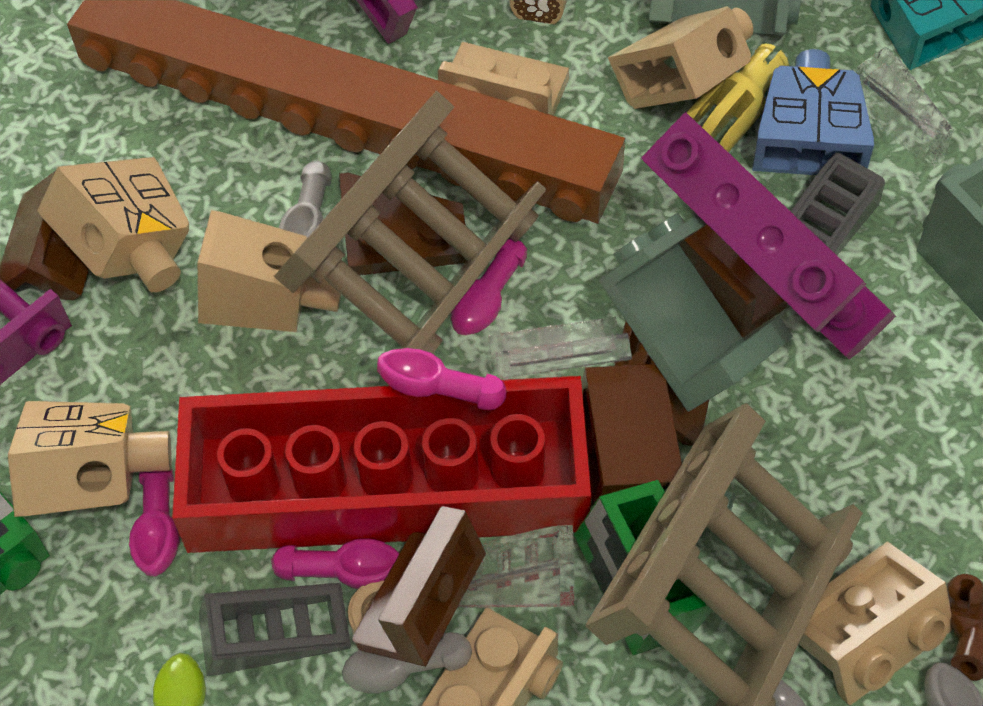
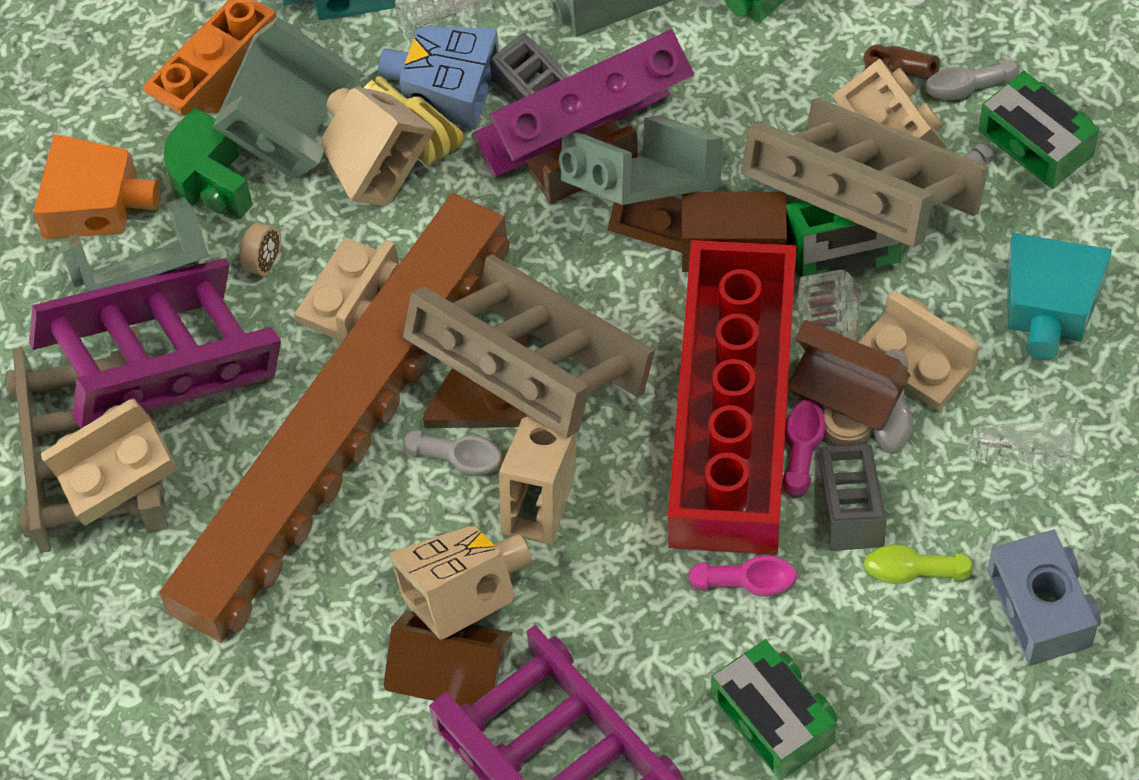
camera: 80 degrees left, 0 degrees up
(79, 456) = (694, 613): tan torso -> none
(424, 374) = (682, 336): dark pink piece -> none
(557, 348) = (649, 267): clear slope -> none

